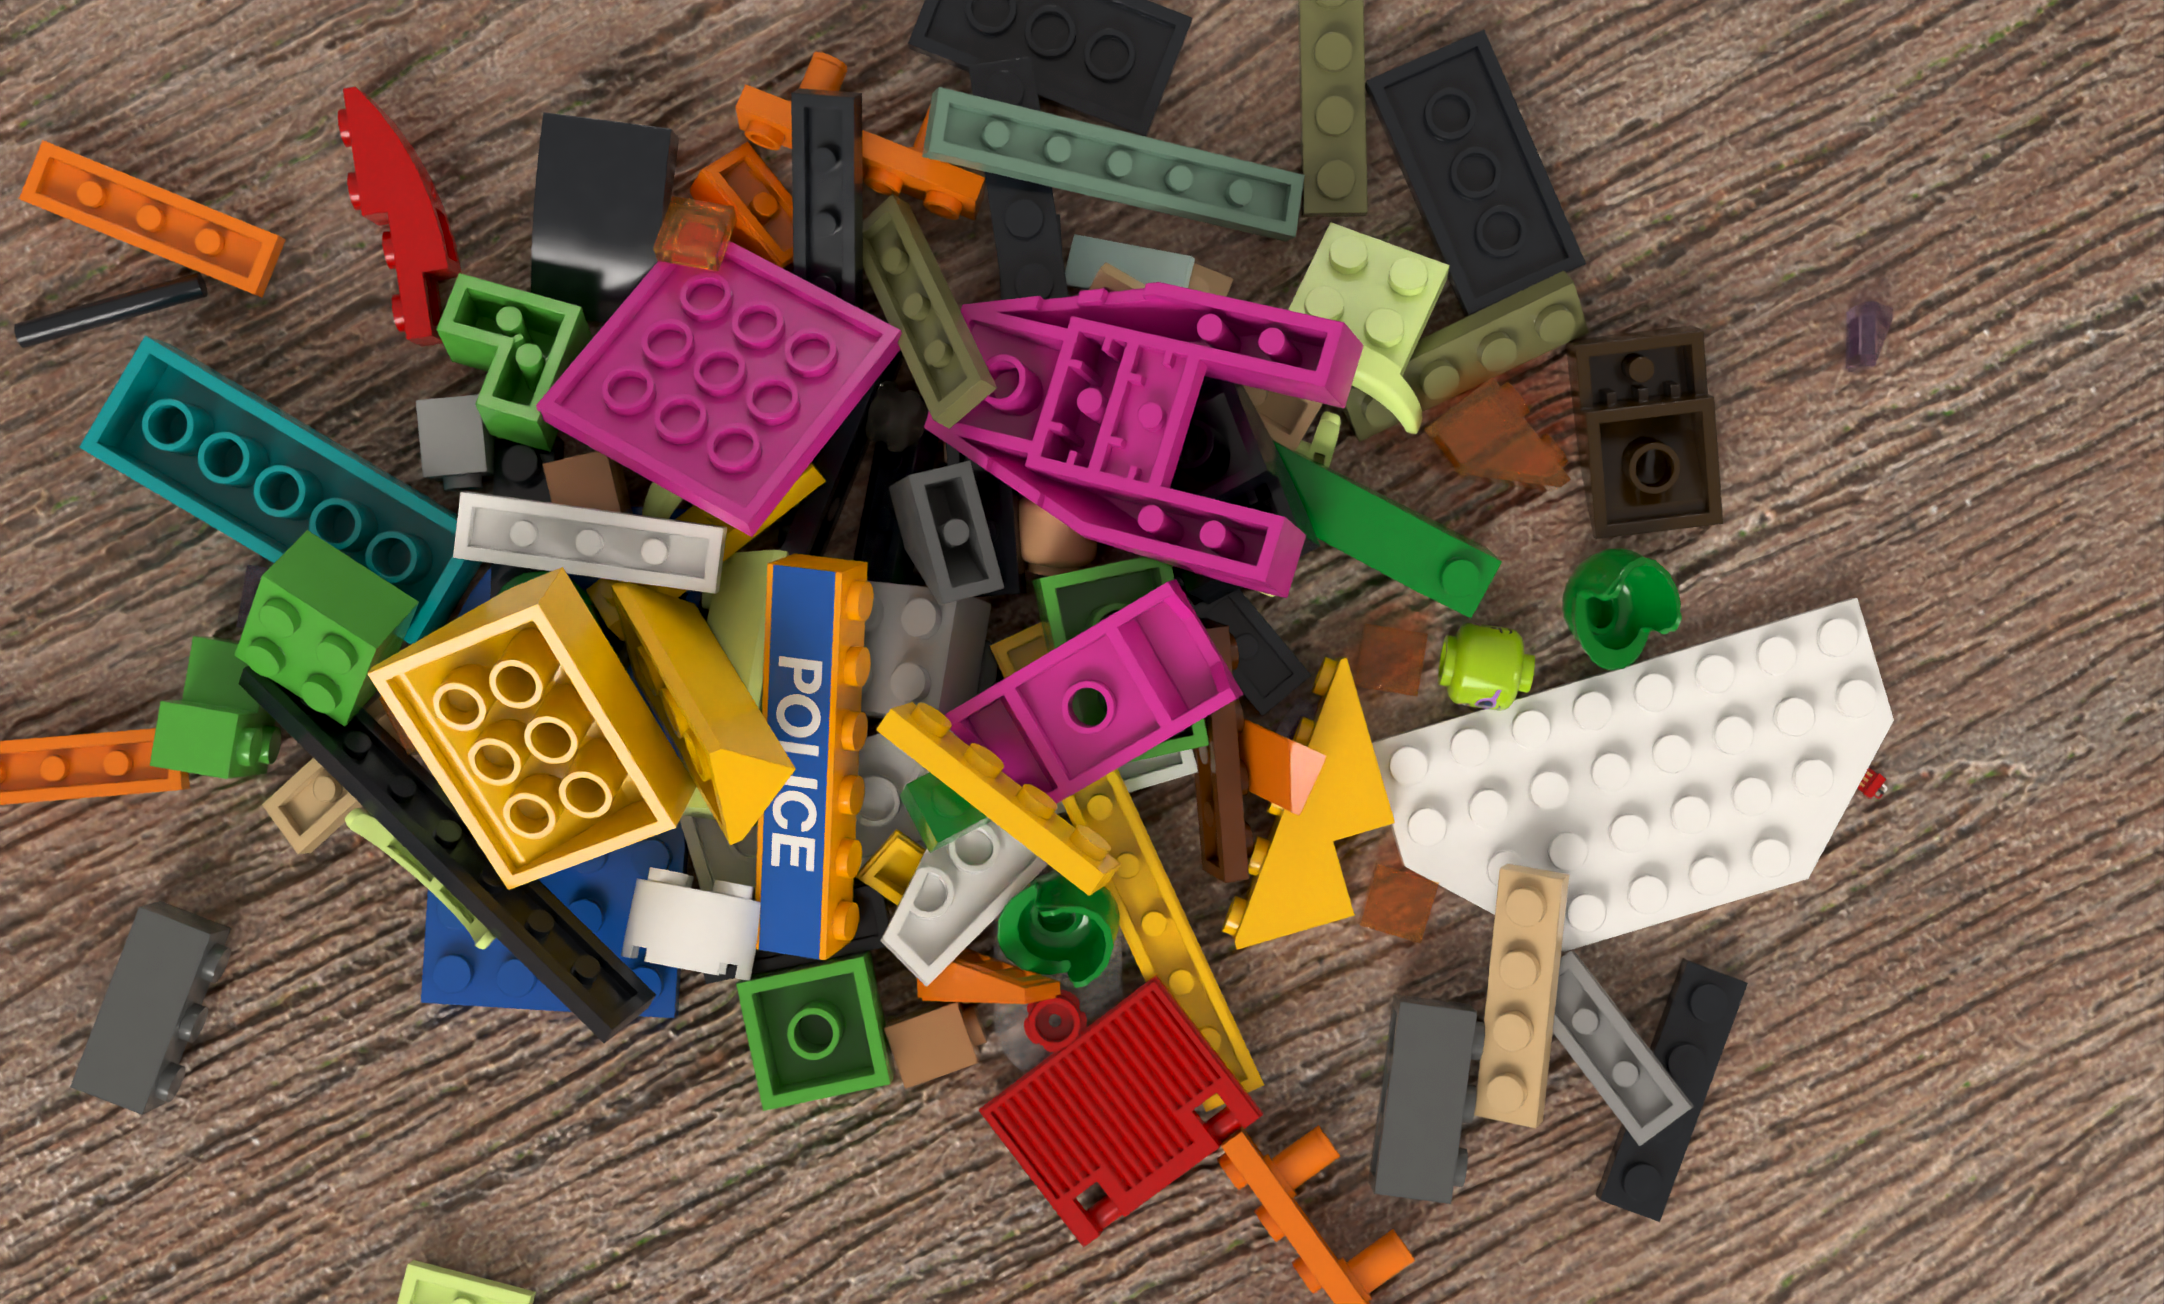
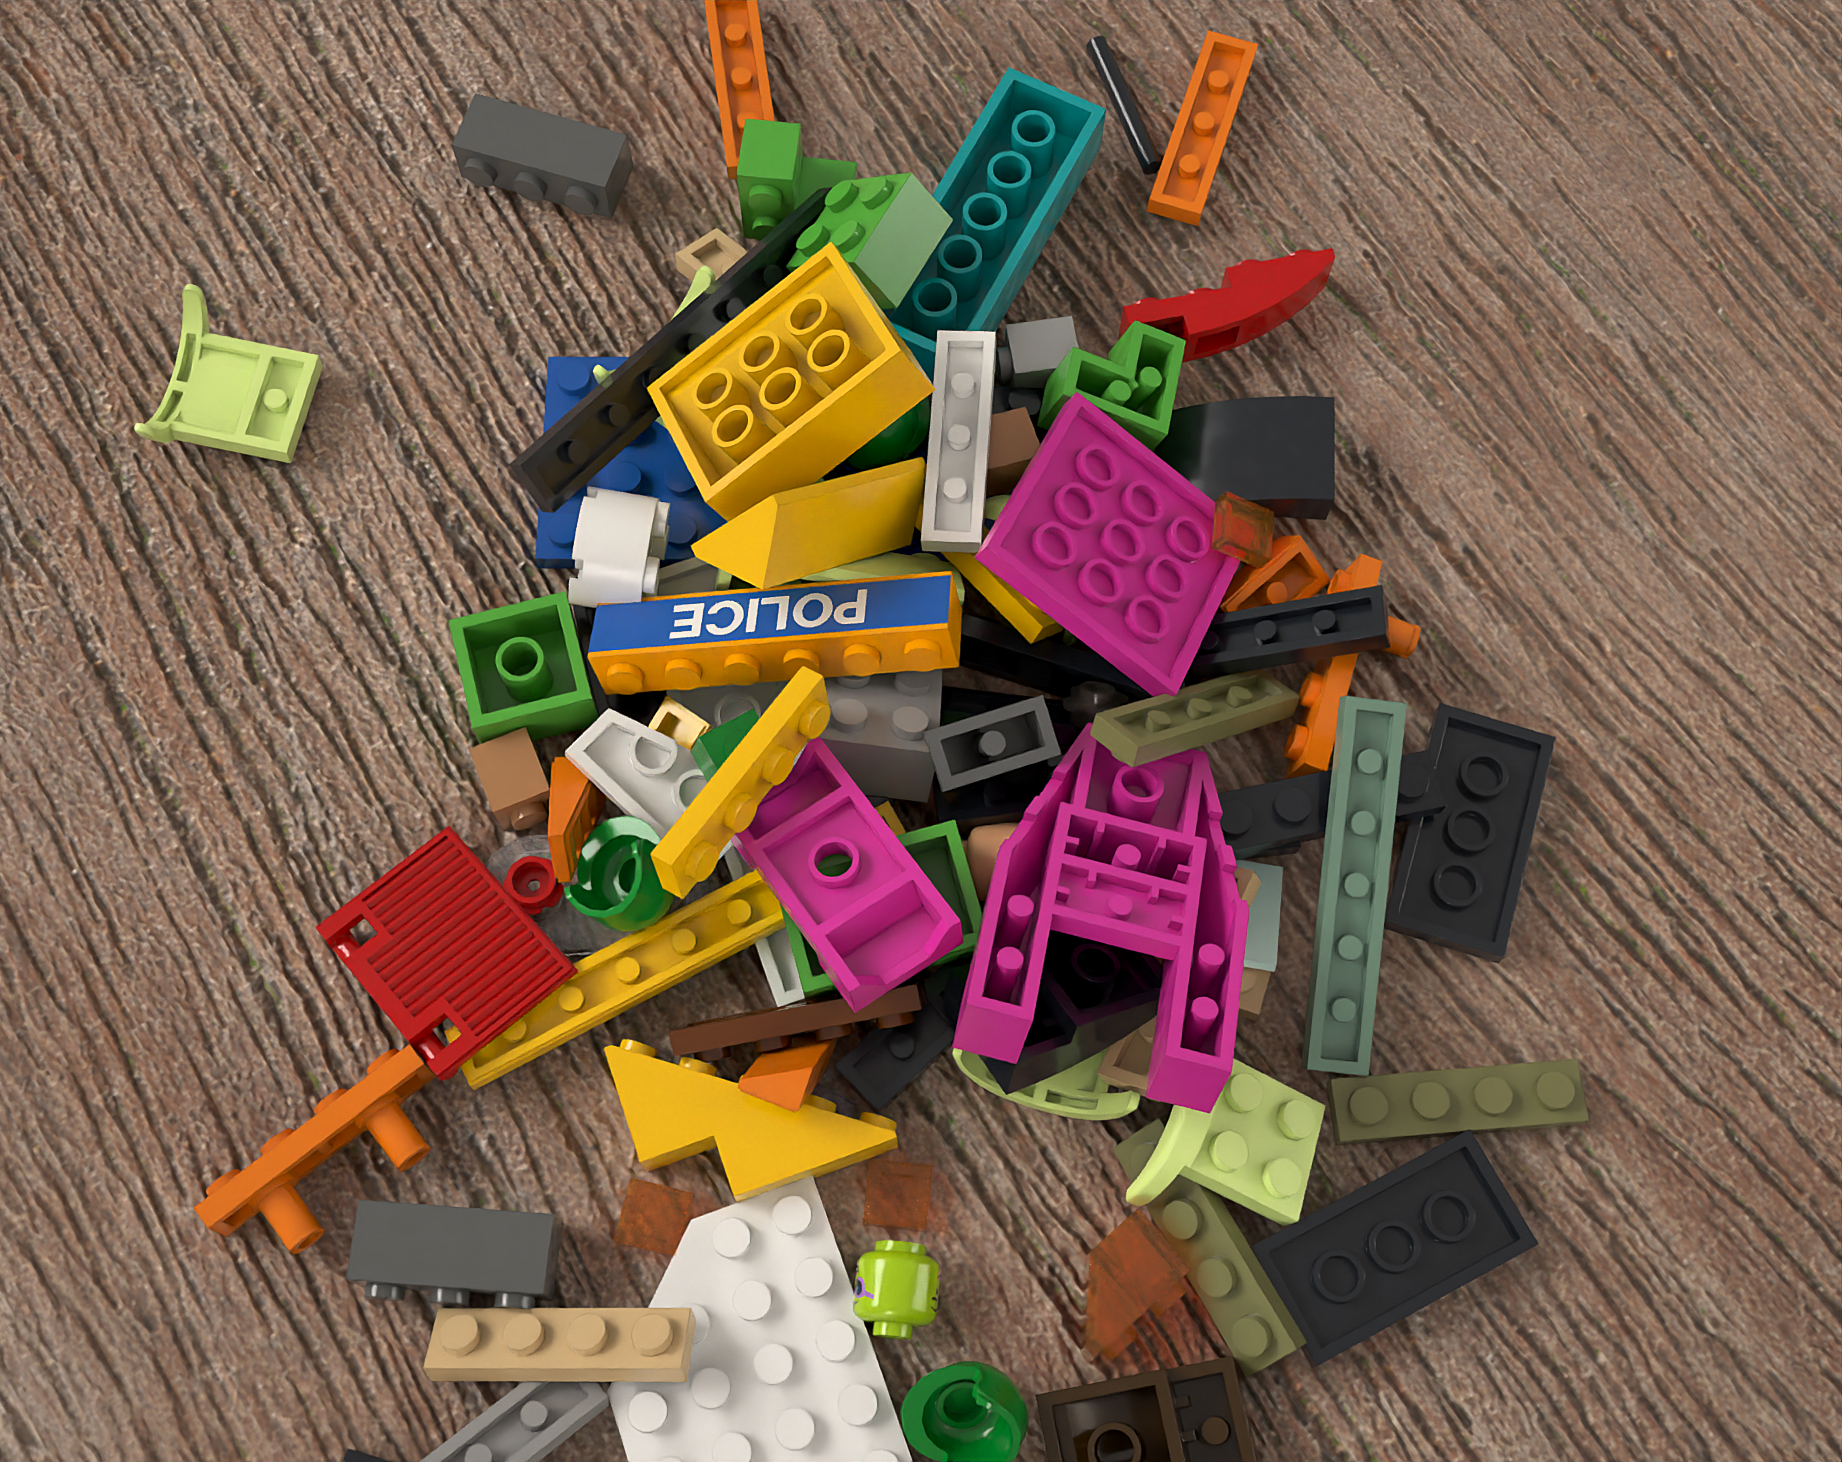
camera: 85 degrees right, 20 degrees down
(1392, 536) = (1022, 1174): green slope -> none

